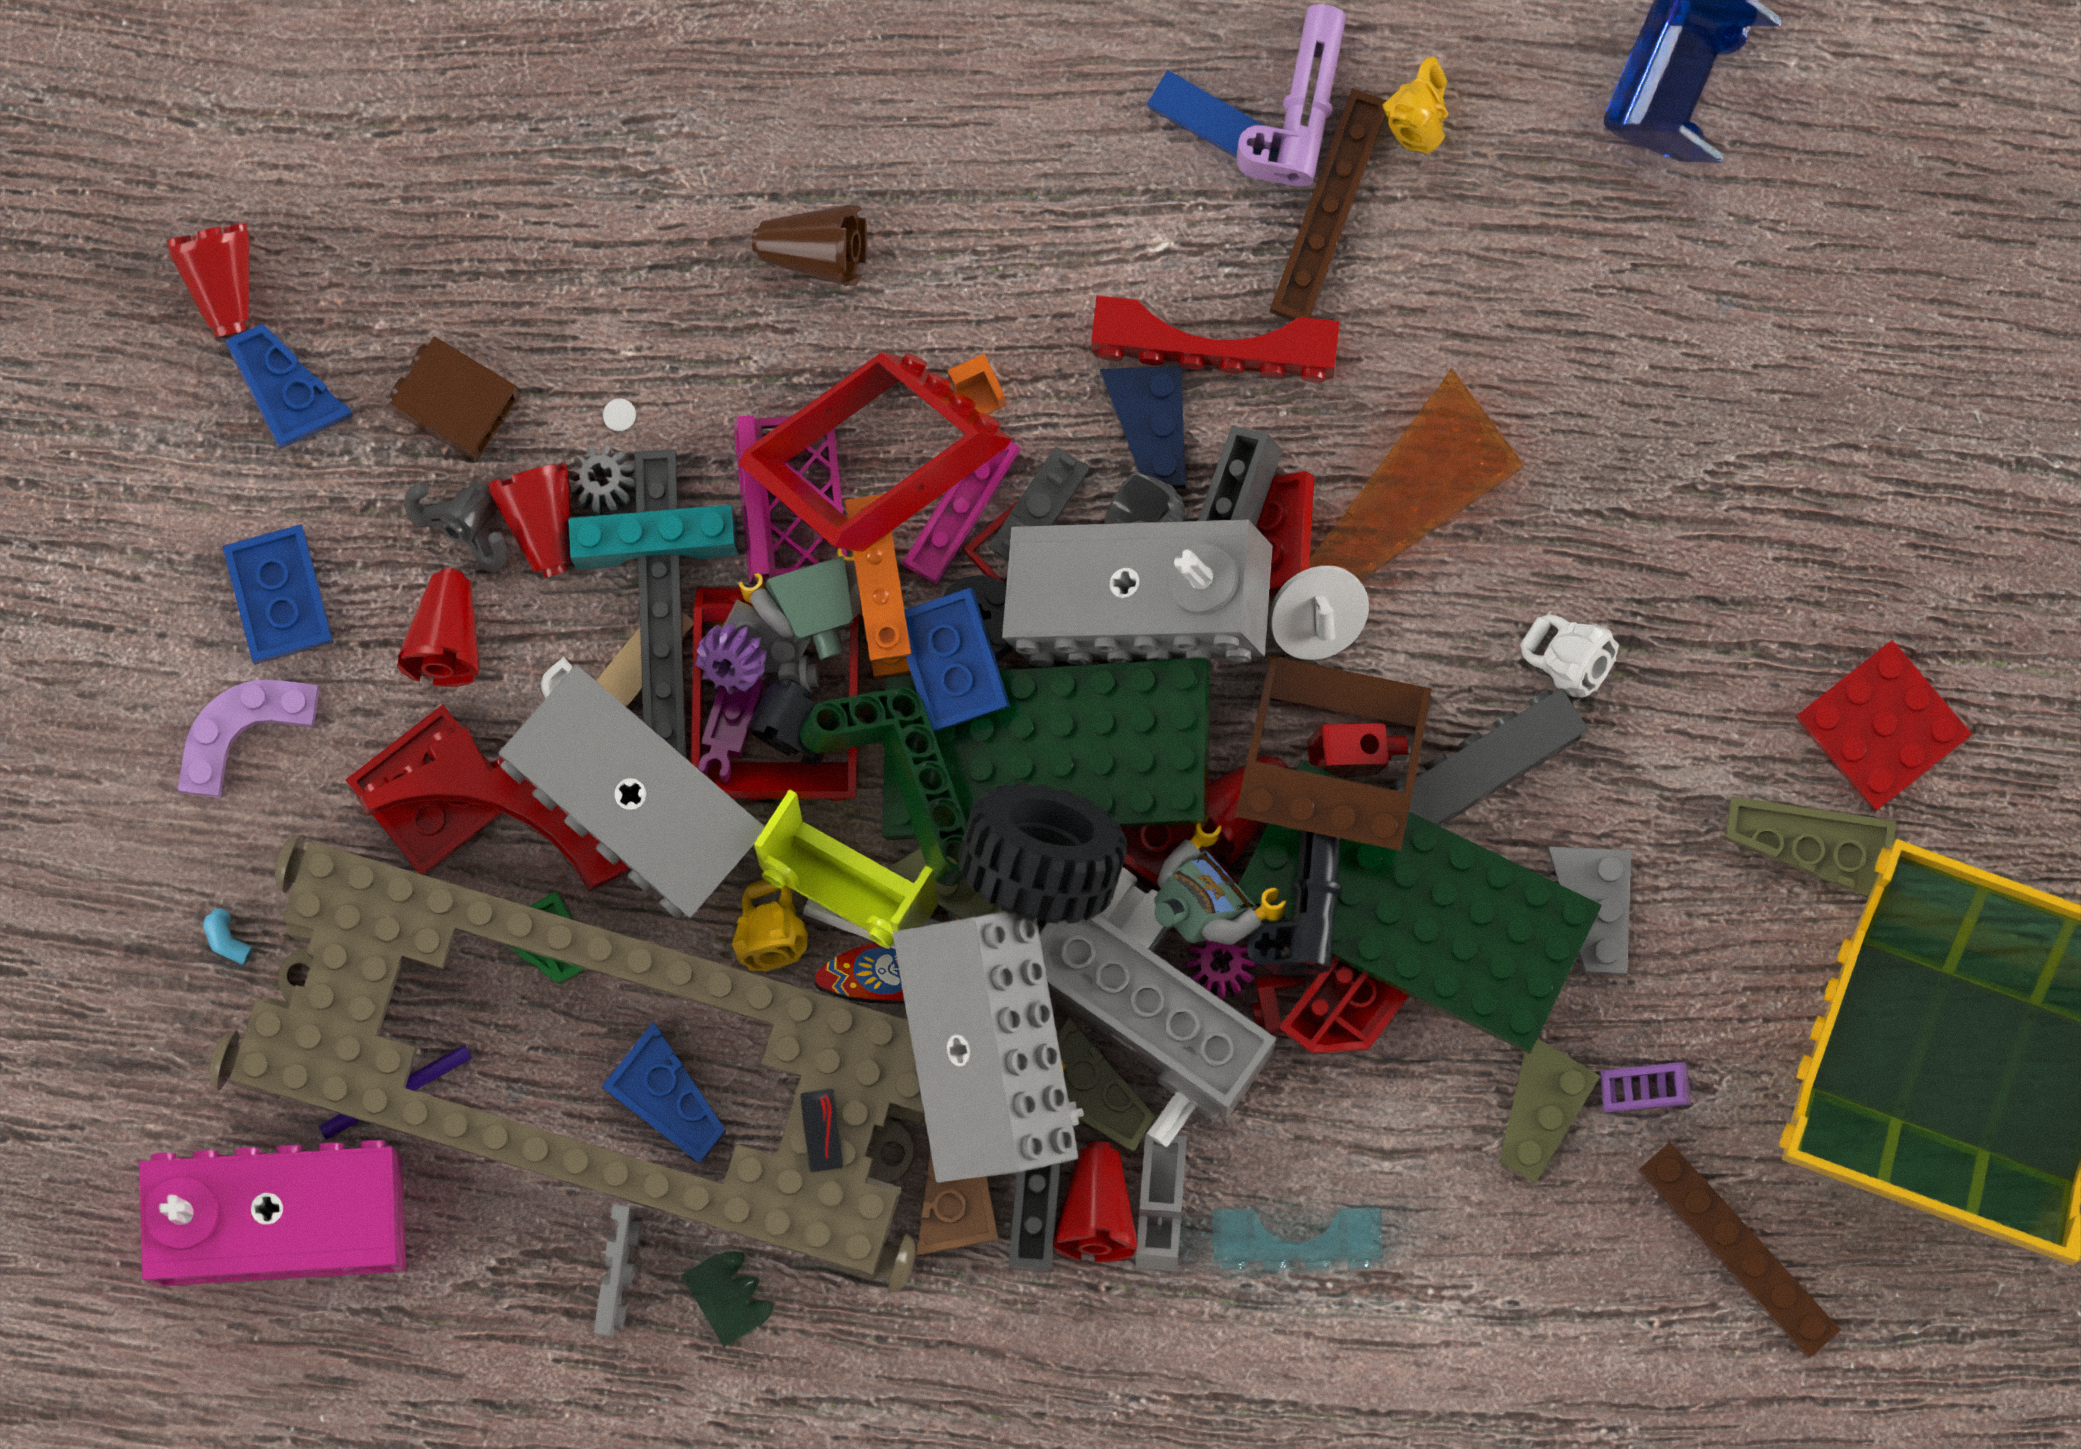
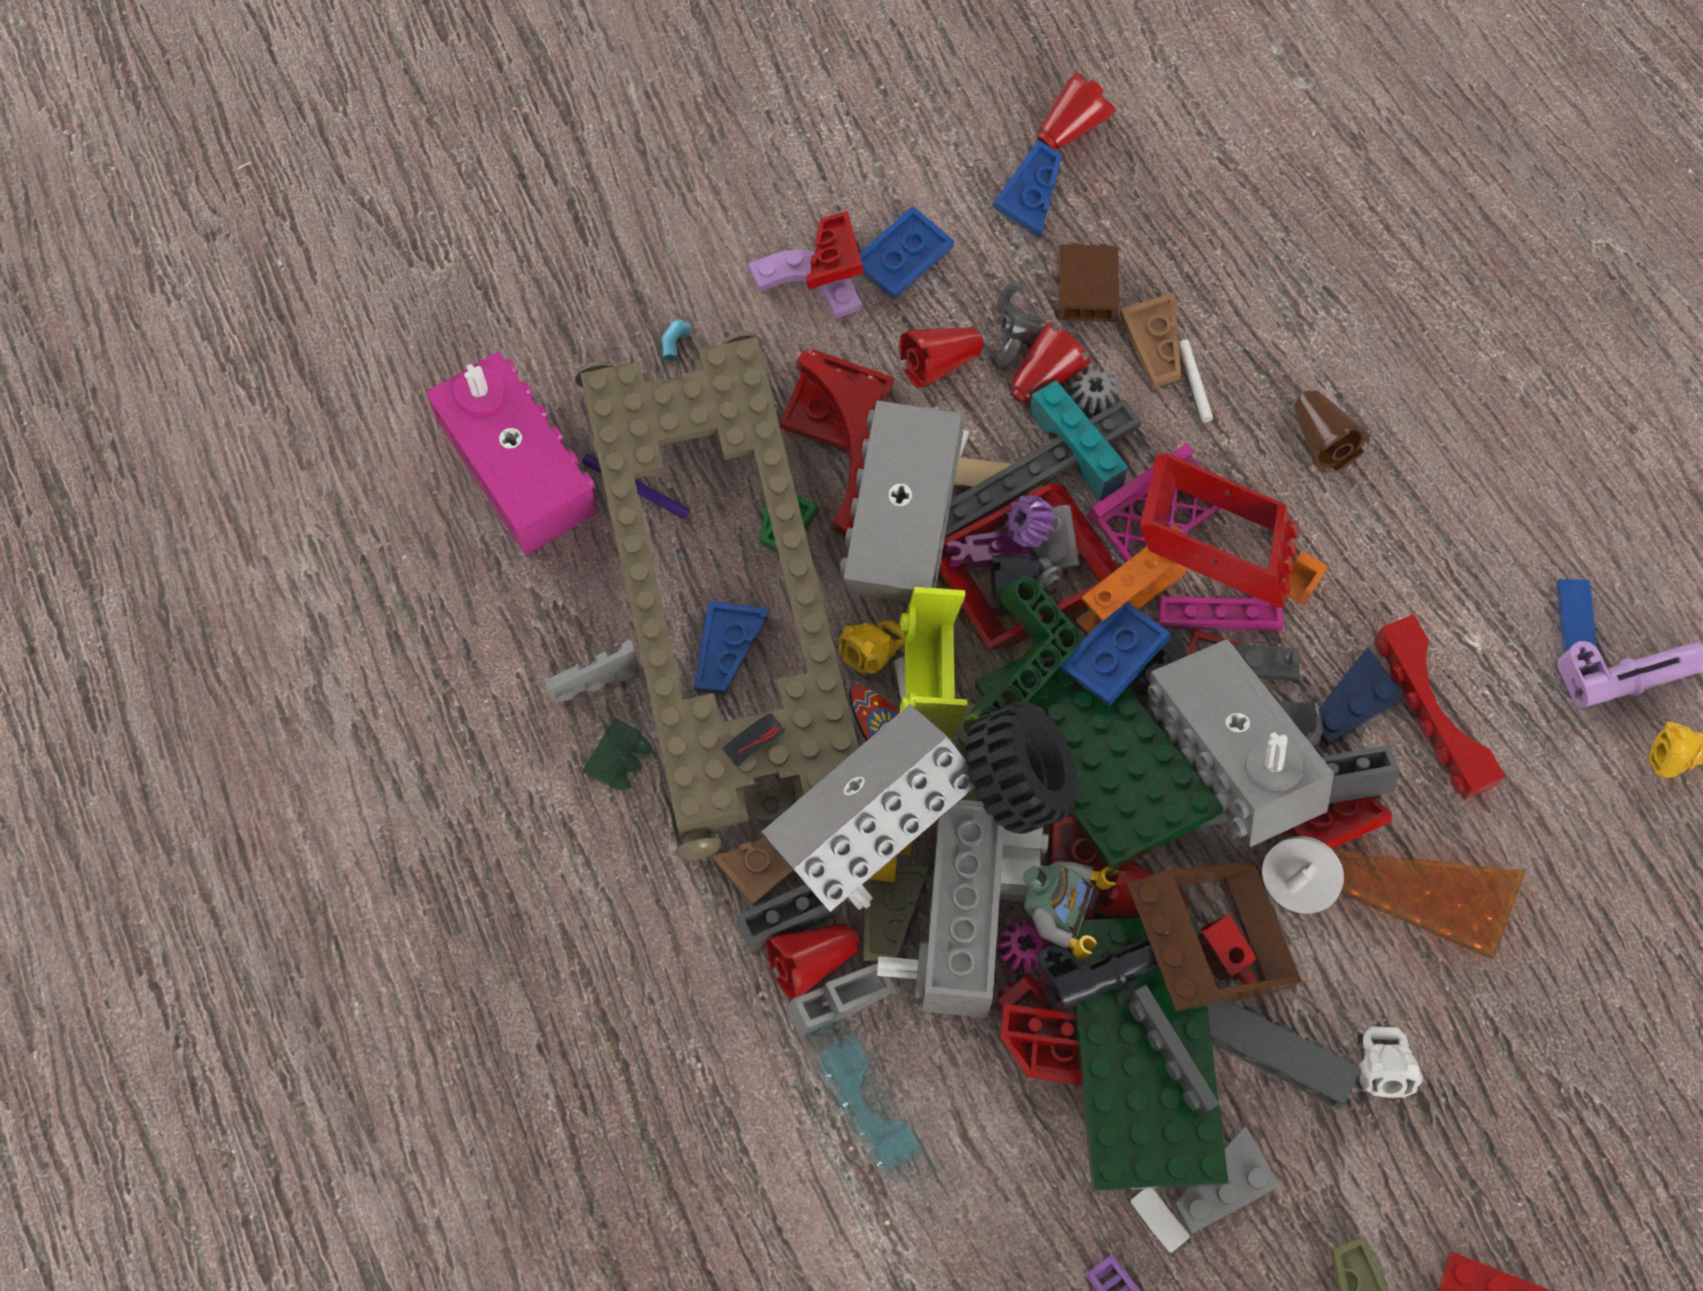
camera: 55 degrees right, 10 degrees down
(233, 676) = (835, 252): none -> red wing
(572, 365) = (1154, 338): none -> medium nougat wing
(619, 414) = (1140, 383): white sticker -> none
(655, 351) = (1195, 381): none -> white bar
(810, 602) = (1095, 545): sand green torso -> none
(1329, 206) = (1576, 730): reddish brown plate -> none
(1454, 880) = (1178, 1061): none -> dark grey plate
(1543, 1108) = (1062, 1229): olive wing -> none
(1593, 998) = (1160, 1219): none -> white sticker

